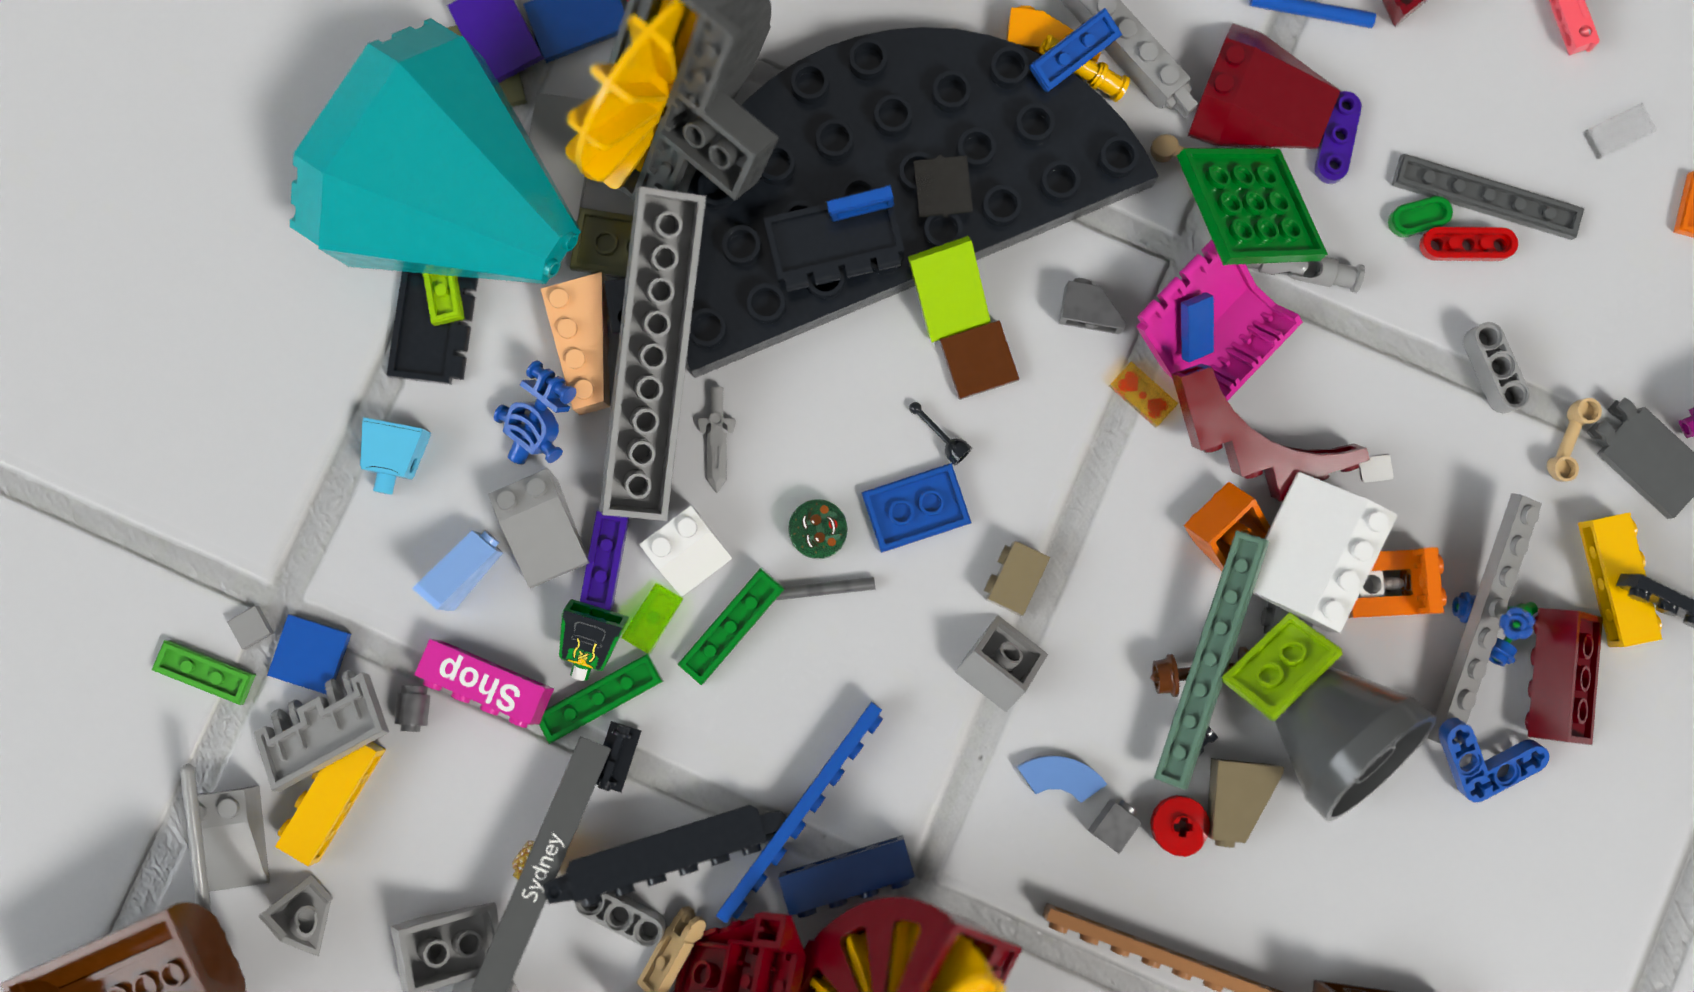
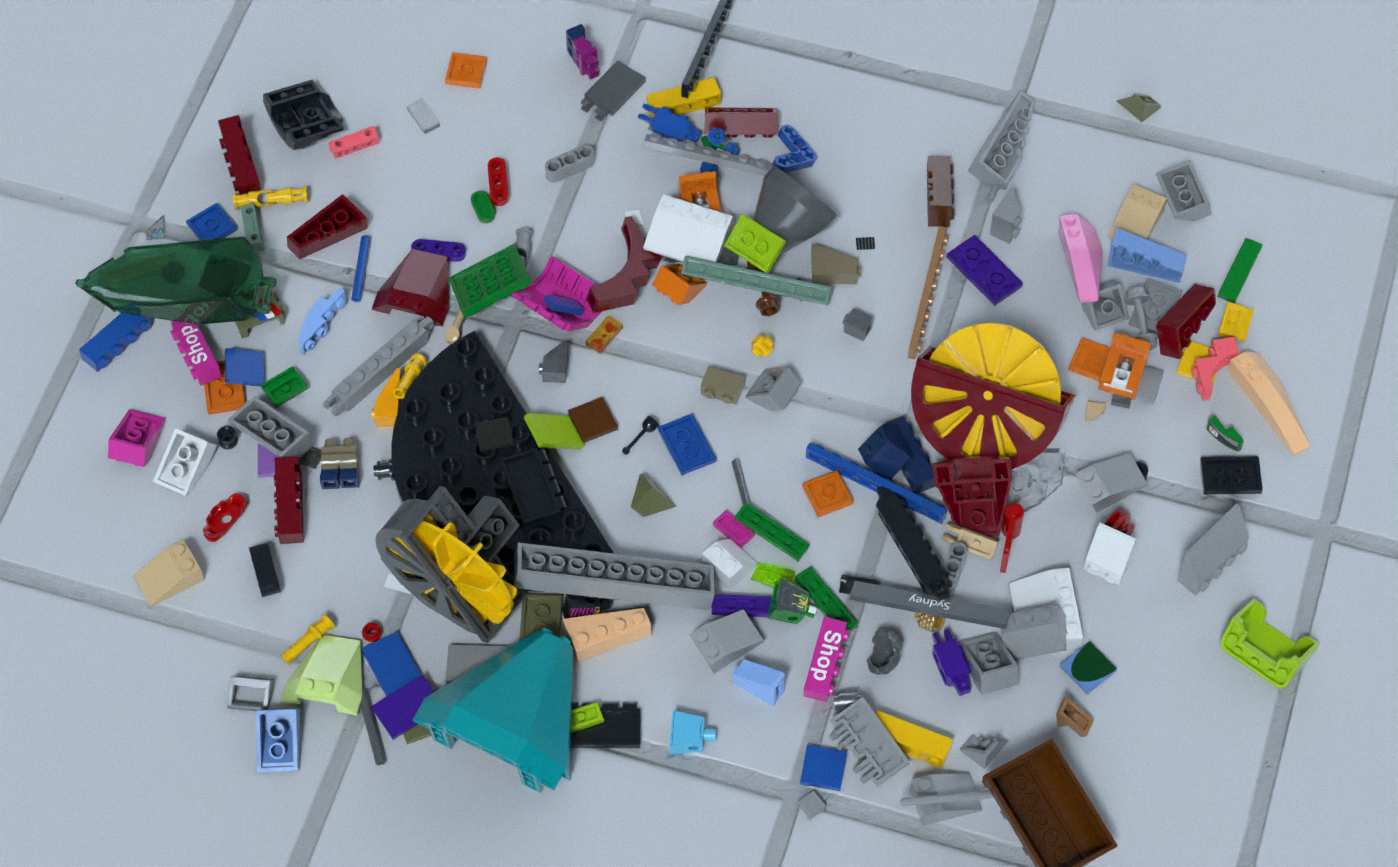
camera: 100 degrees left, 25 degrees down
(203, 672) = (844, 829): bright green tile -> none
(453, 885) = (951, 663): none -> dark purple hinge
(478, 779) = (885, 652): none -> dark grey hair
(540, 425) = (670, 656): blue piece -> none
(716, 439) = (666, 554): light grey sword -> none
(746, 563) = (733, 529): none -> dark pink tile
(795, 728) = (827, 493): none -> orange tile
(818, 529) = (706, 492): clear green head -> none
(820, 437) = (649, 498): none -> olive slope
(846, 837) = (885, 451): none -> dark blue slope
(860, 203) = (512, 468): blue tile -> none
(918, 16) = (383, 470): none -> black brick
(1061, 774) = (832, 355): medium blue tile -> none
(1075, 50) = (403, 375): blue tile -> none
(1088, 655) = (762, 345): none -> yellow gear
(1191, 837) = (852, 293): red piece -> none
(1287, 863) = (865, 243): none -> sticker
(1488, 196) = (467, 176): dark grey tile -> none
(1561, 547) = (669, 124): none -> blue hinge
(1563, 467) = (622, 130): tan bar -> none

